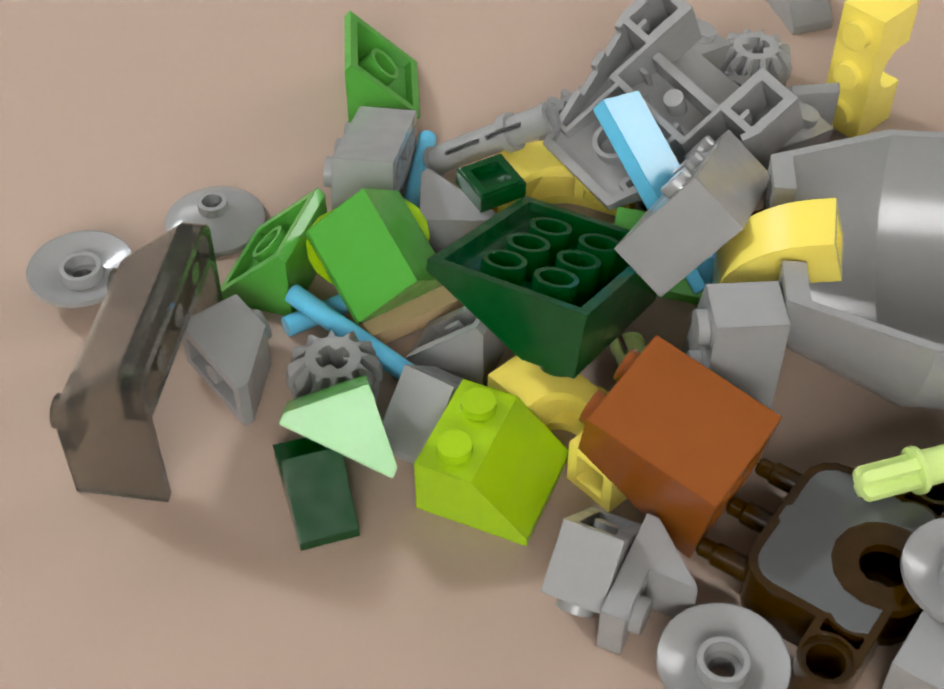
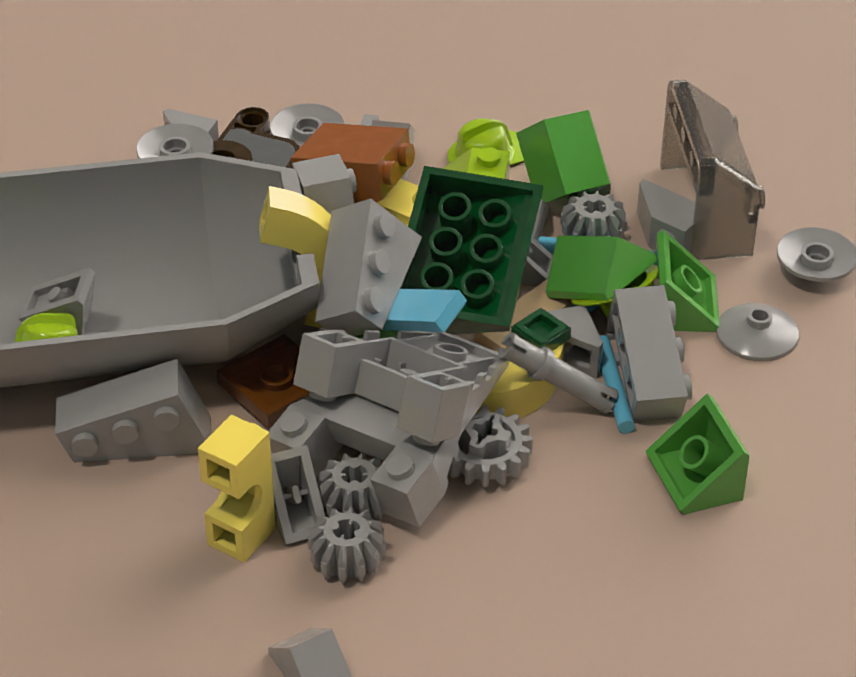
camera: 165 degrees right, 5 degrees down
(419, 579) = (486, 134): none -> lime piece

